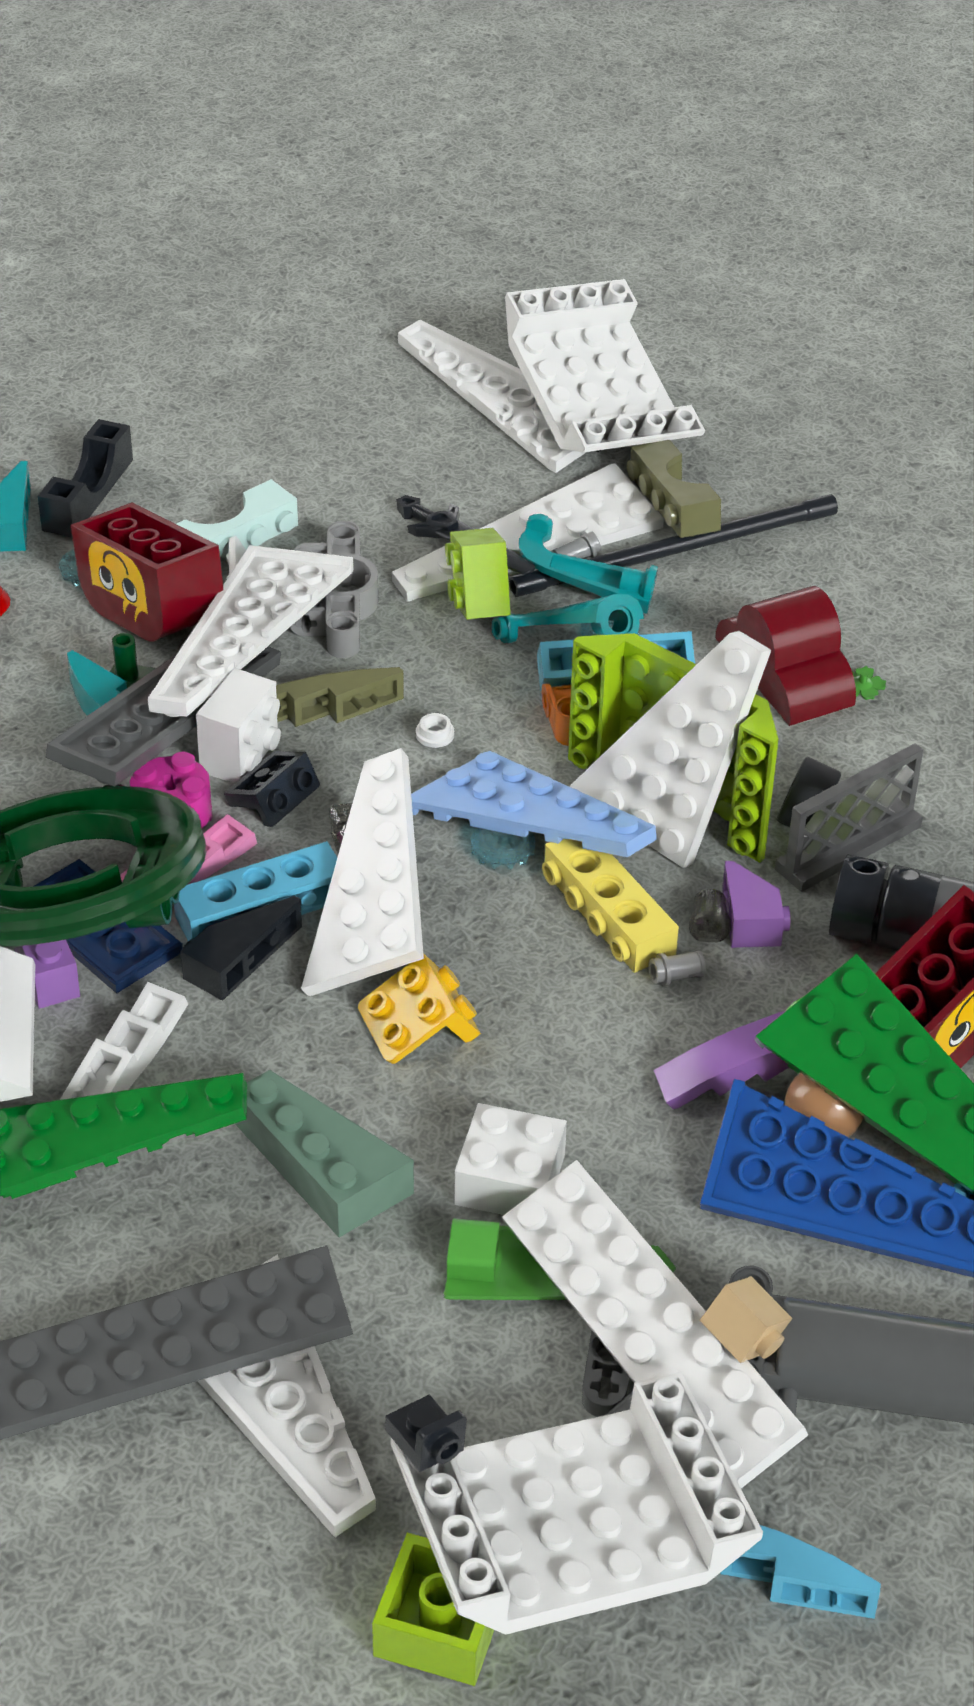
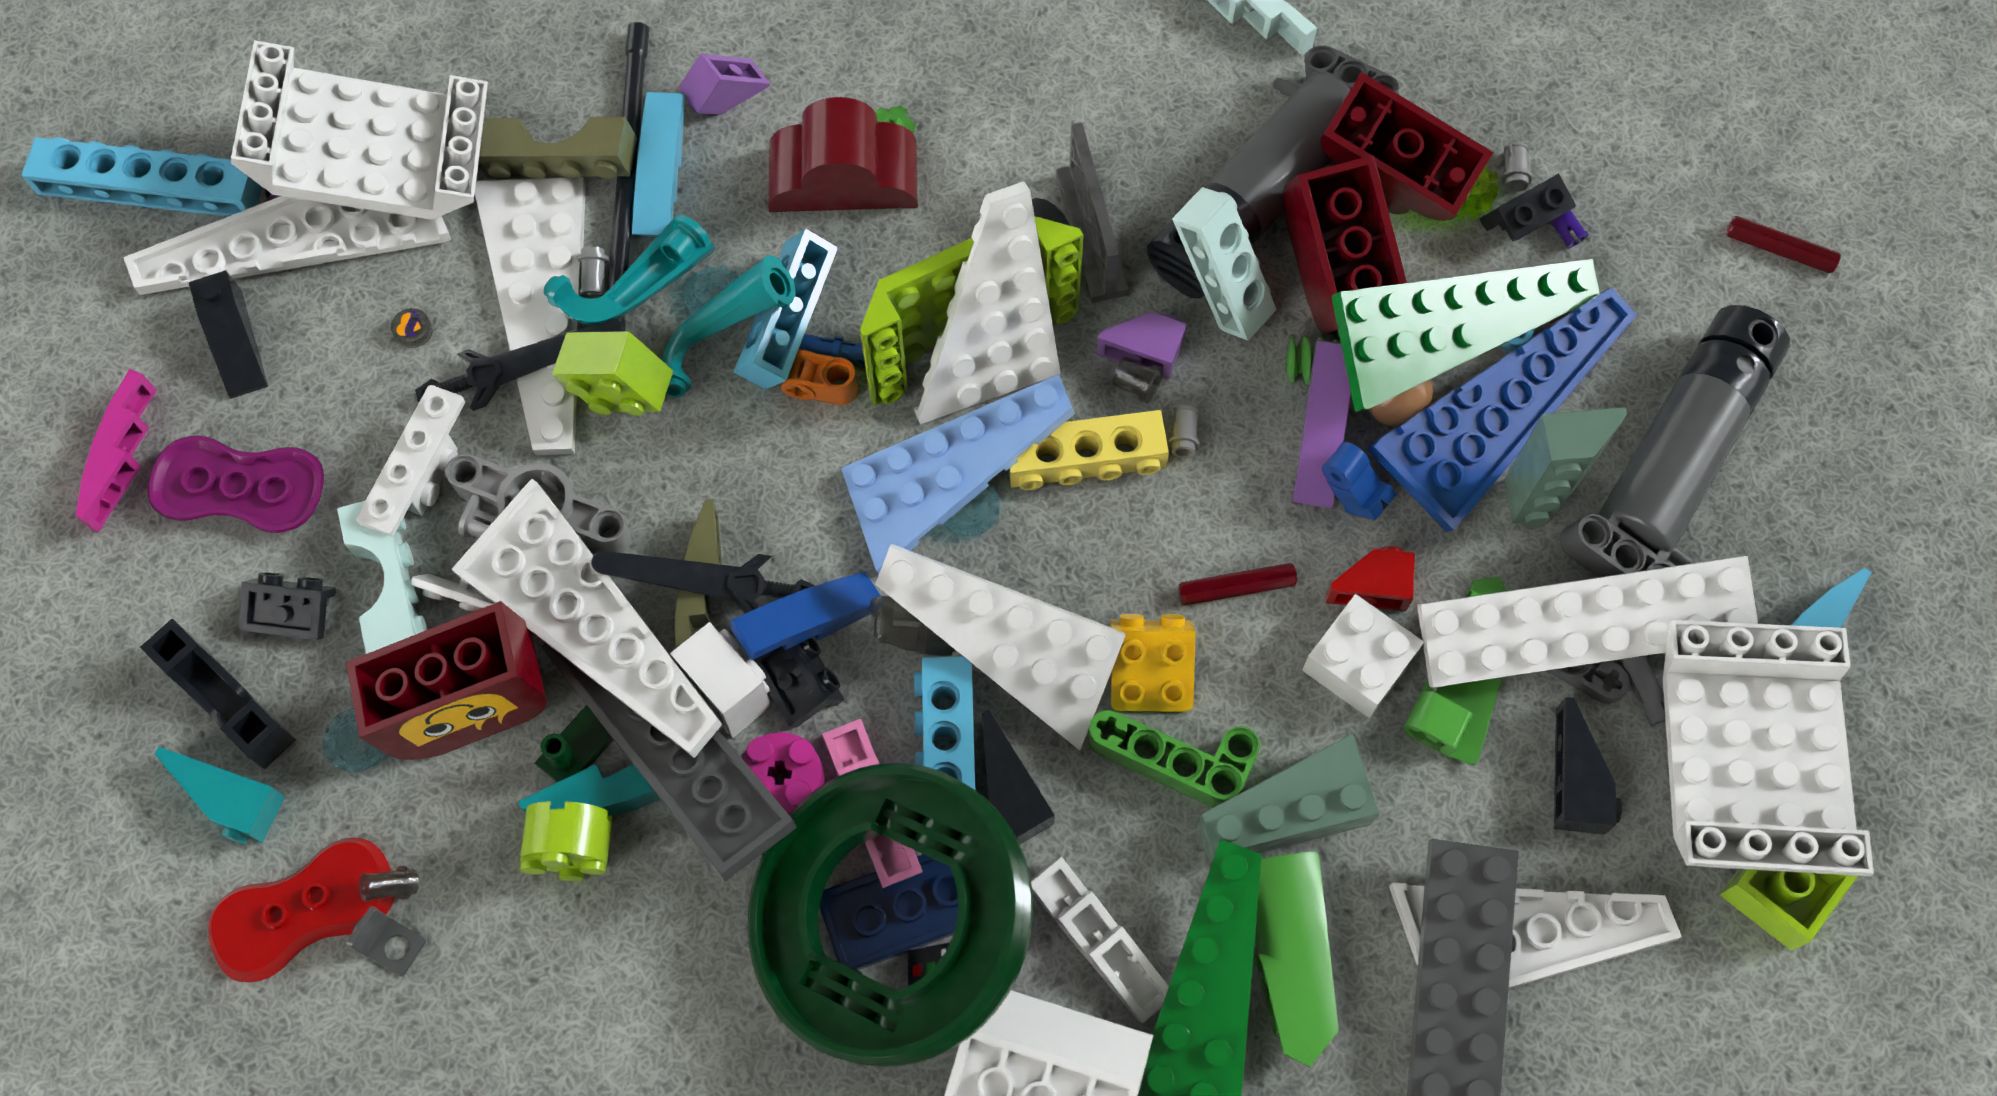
camera: 65 degrees left, 25 degrees up
(51, 686) = (566, 840): none -> lime brick
(151, 1202) = (1296, 955): none -> bright green panel
(179, 490) = (284, 607): none -> black bracket
(259, 368) = (110, 461): none -> dark pink slope
(266, 436) = (265, 488): none -> magenta plate
(314, 744) = (804, 615): none -> blue slope
(318, 1070) = (1170, 751): none -> bright green beam
(324, 505) = (416, 463): none -> white bracket
(333, 710) = (723, 581): none -> black sword
(394, 386) = (228, 333): none -> black slope
(427, 1432) = (1714, 833): black bracket -> none
(435, 730) = (784, 494): white plate -> none
(460, 478) = (411, 328): none -> clear smoke tile
(484, 293) = (138, 177): none -> medium azure brick
(485, 1380) = (1583, 783): none -> black slope
(539, 1056) = (1237, 584): none -> dark red axle
(605, 1151) = (1379, 578): none -> red slope
(697, 1094) = (1356, 482): none -> blue leg
(715, 548) = (658, 163): none -> medium azure slope
(746, 1320) = (1645, 550): tan brick -> none
(806, 1218) = (1557, 461): none -> sand green slope
(814, 560) = (721, 83): none -> medium lavender slope
(855, 834) = (1225, 262): none -> light aqua brick

